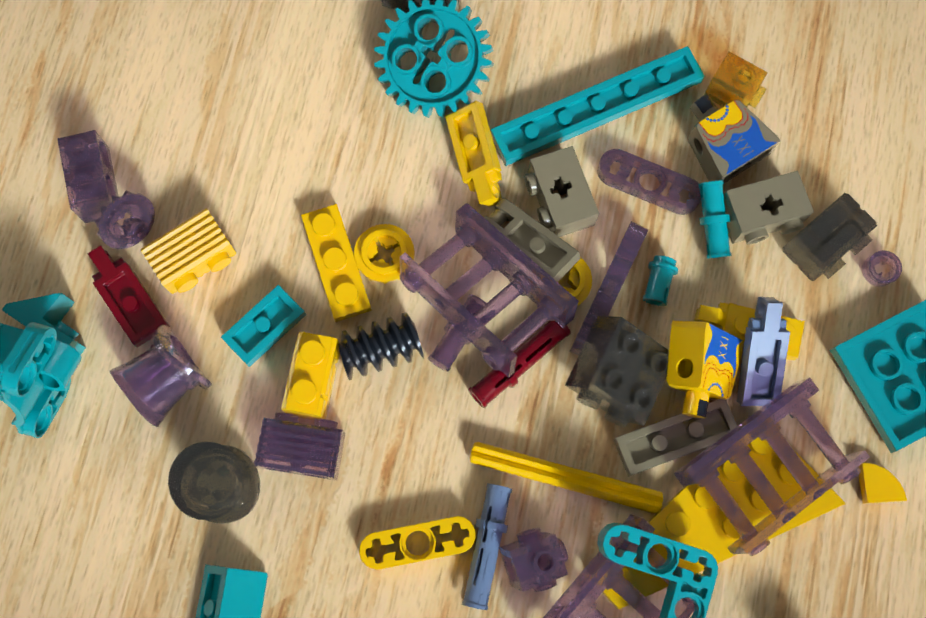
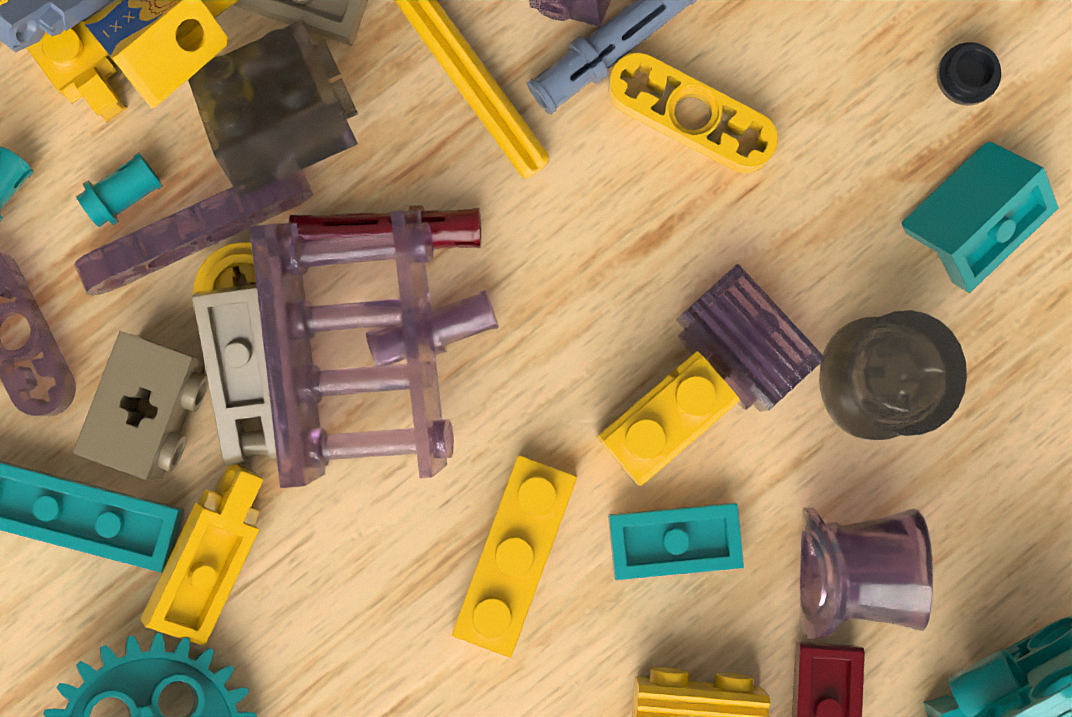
camera: 140 degrees left, 10 degrees up
(366, 250) = (418, 534): yellow gear -> none
(379, 345) = (547, 390): black piece -> none

